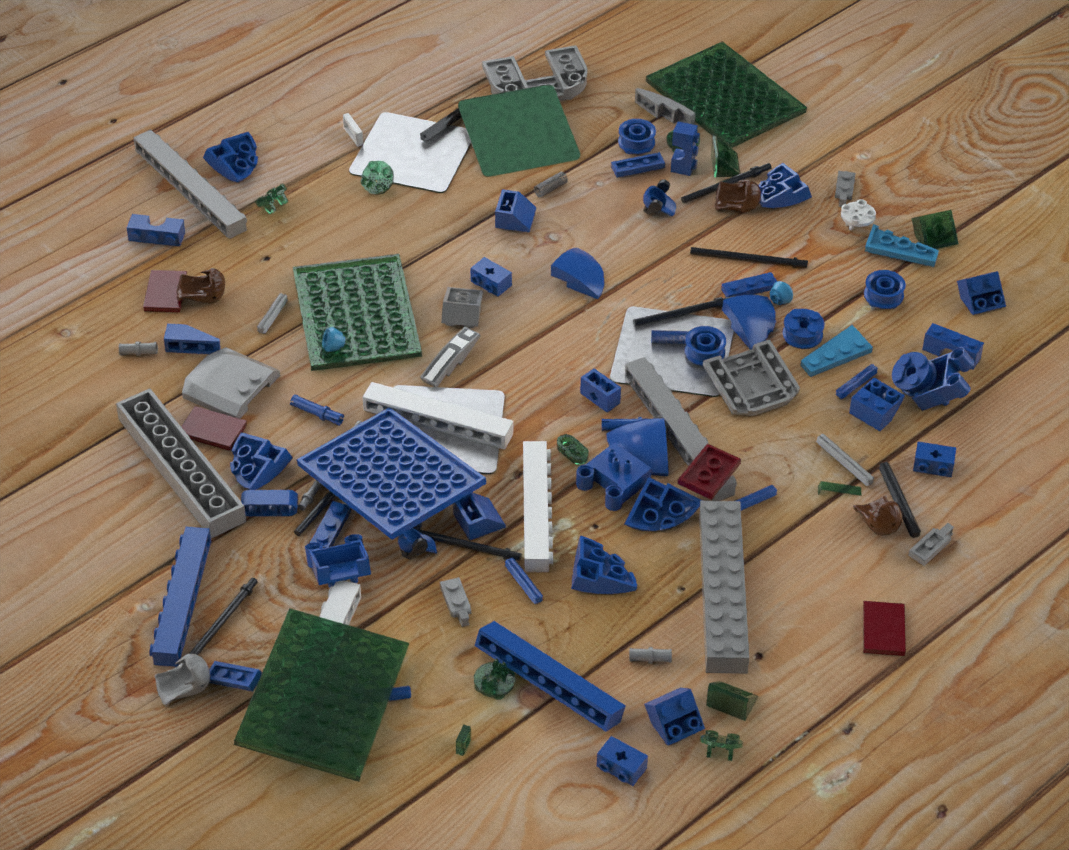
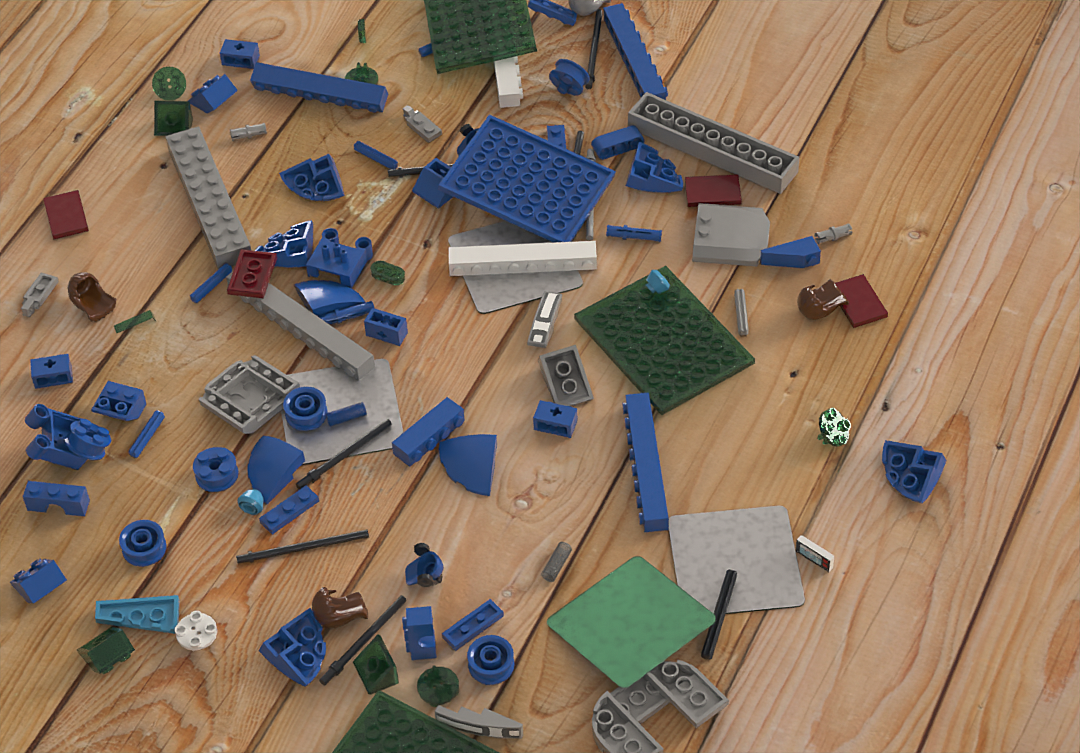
camera: 160 degrees right, 5 degrees up
(168, 233) = (933, 349): blue arch -> none
(190, 184) = (933, 420): light grey brick -> none
(273, 576) = (569, 77): none -> blue wheel
(338, 561) = (525, 101): blue piece -> none
(371, 175) = (735, 490): clear green plate -> none
(436, 225) = (646, 463): none -> blue brick
(514, 211) = (572, 501): blue slope -> none
(536, 506) = (394, 212): white brick -> none
(604, 300) = (428, 431): none -> blue brick
(837, 351) = (171, 465): dark azure wing -> none
(843, 458) = (137, 348): light grey axle -> none
(844, 186) = (225, 684): light grey hinge -> none
(898, 497) = (77, 328): black axle -> none

